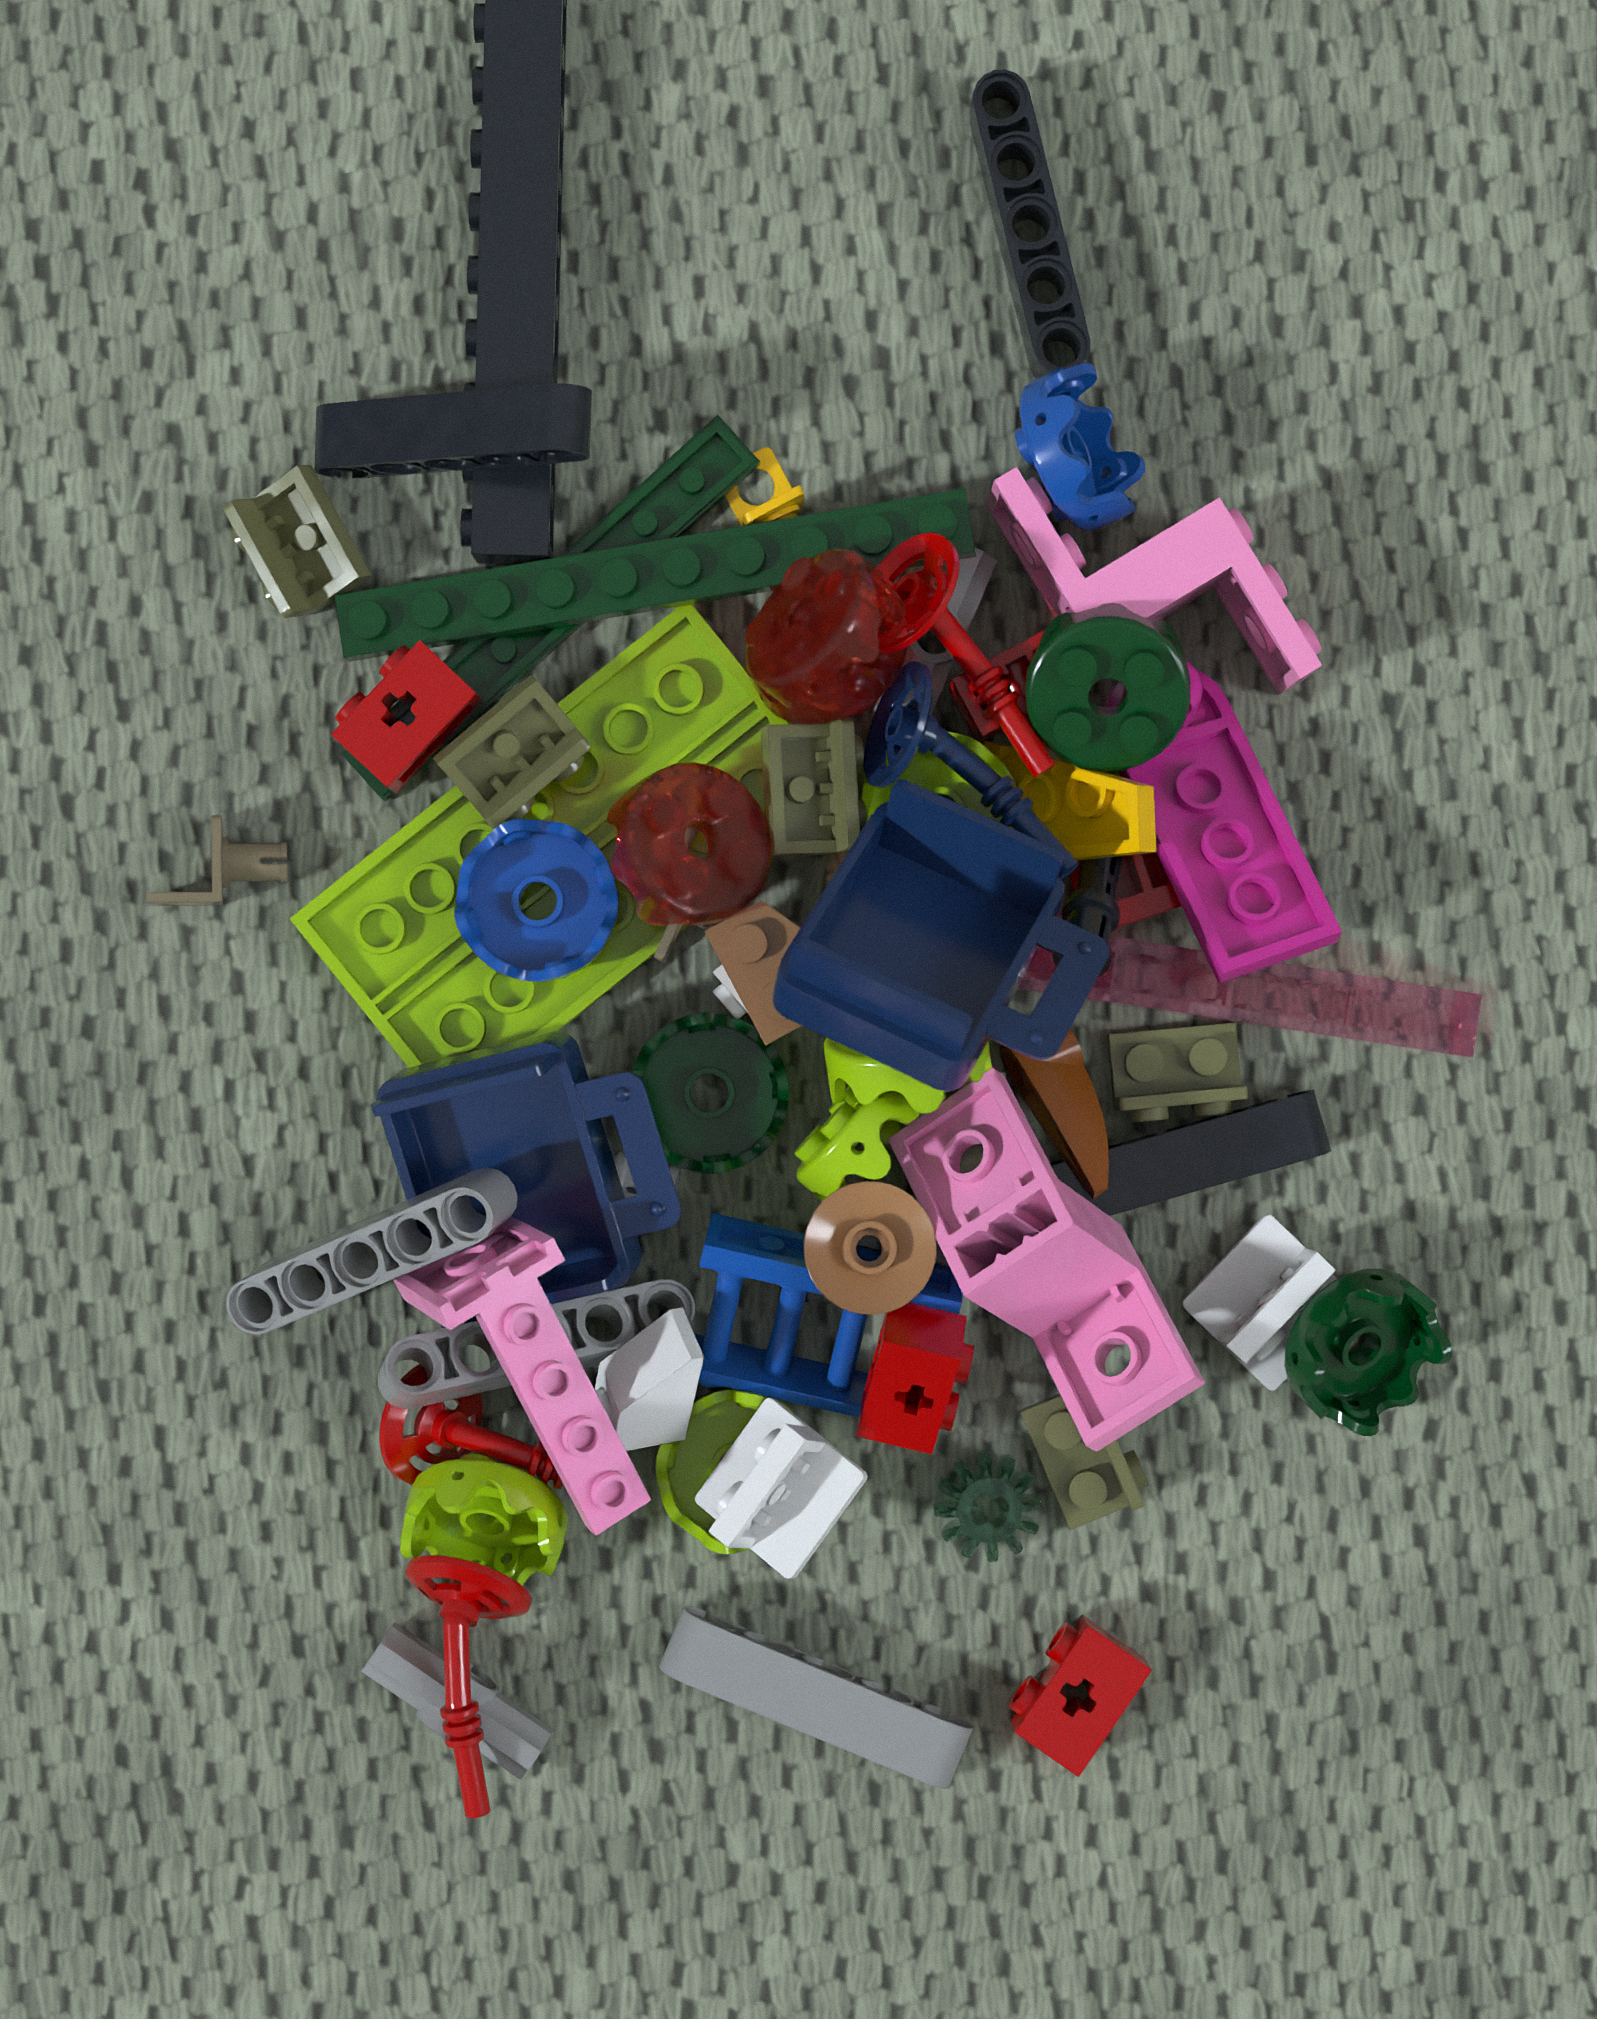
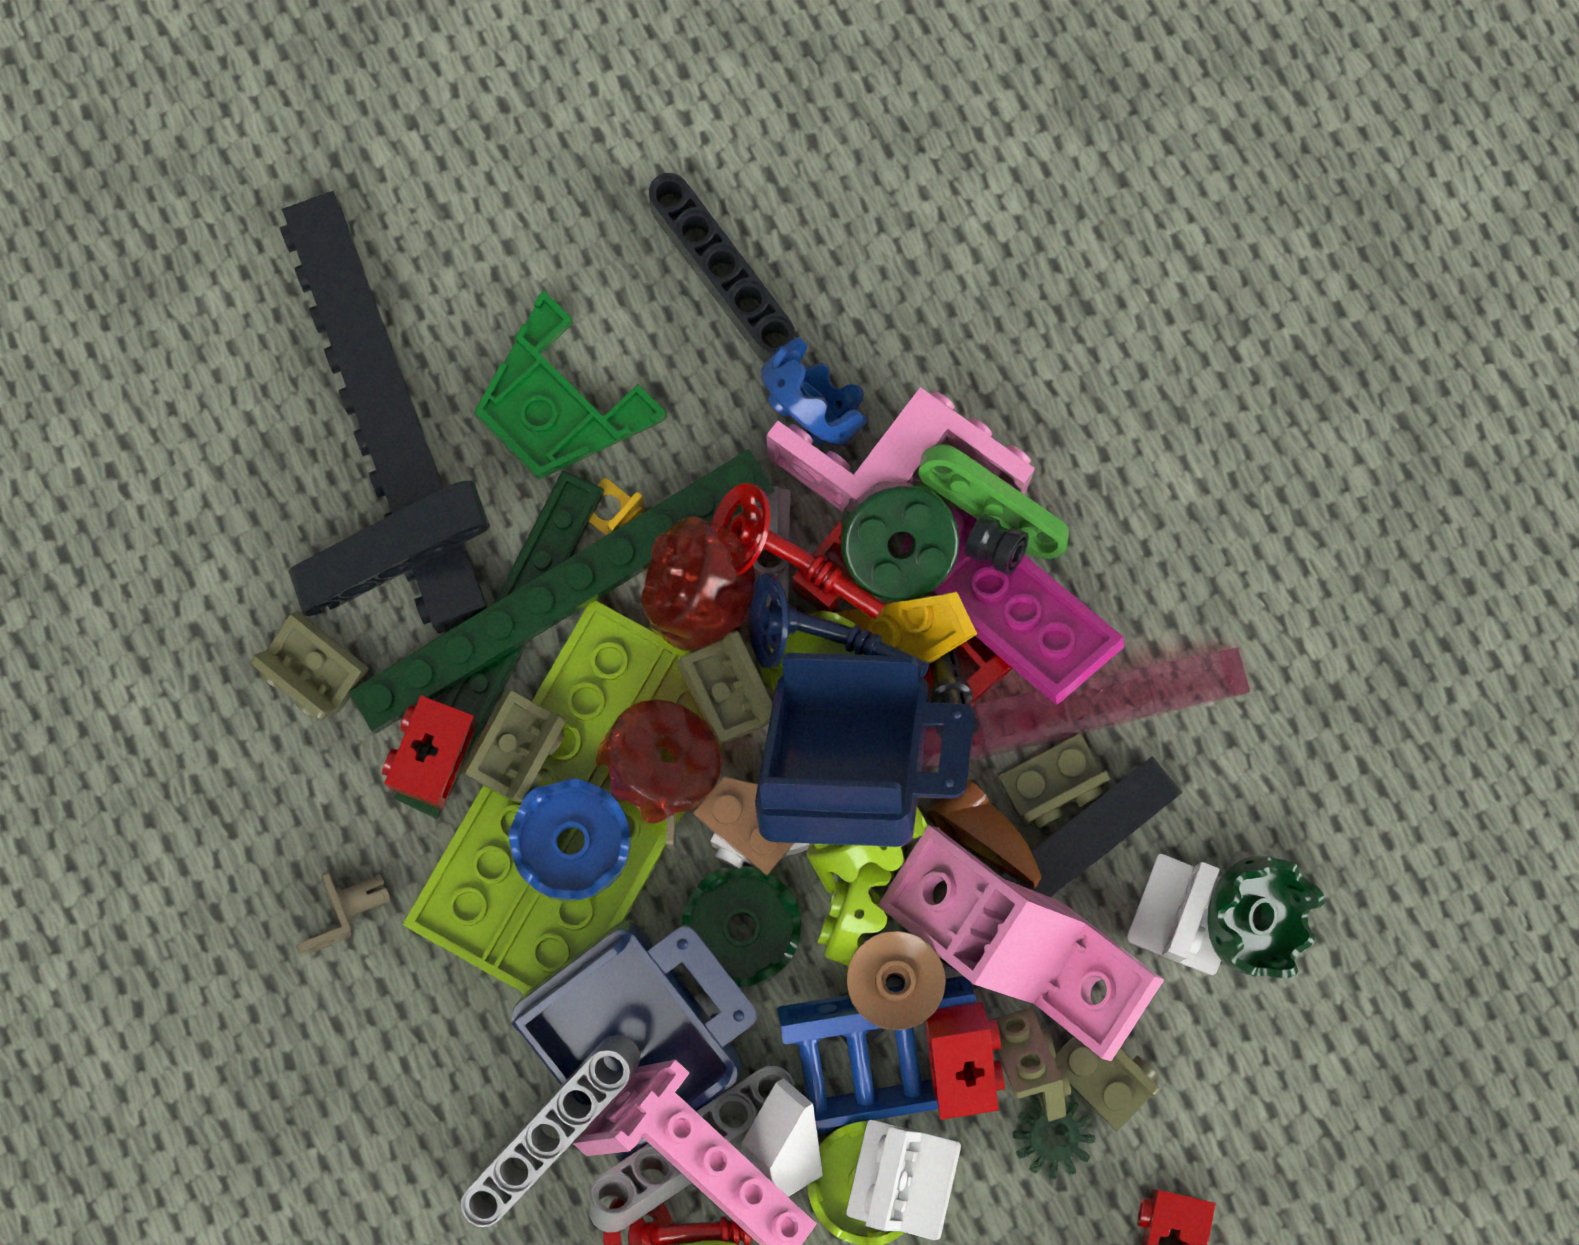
camera: 20 degrees left, 10 degrees down
(721, 331) = (543, 414): none -> green wing
(996, 1409) = (1030, 1063): none -> olive bracket
(1231, 742) = (997, 544): none -> black wheel
(1250, 684) = (982, 493): none -> bright green plate

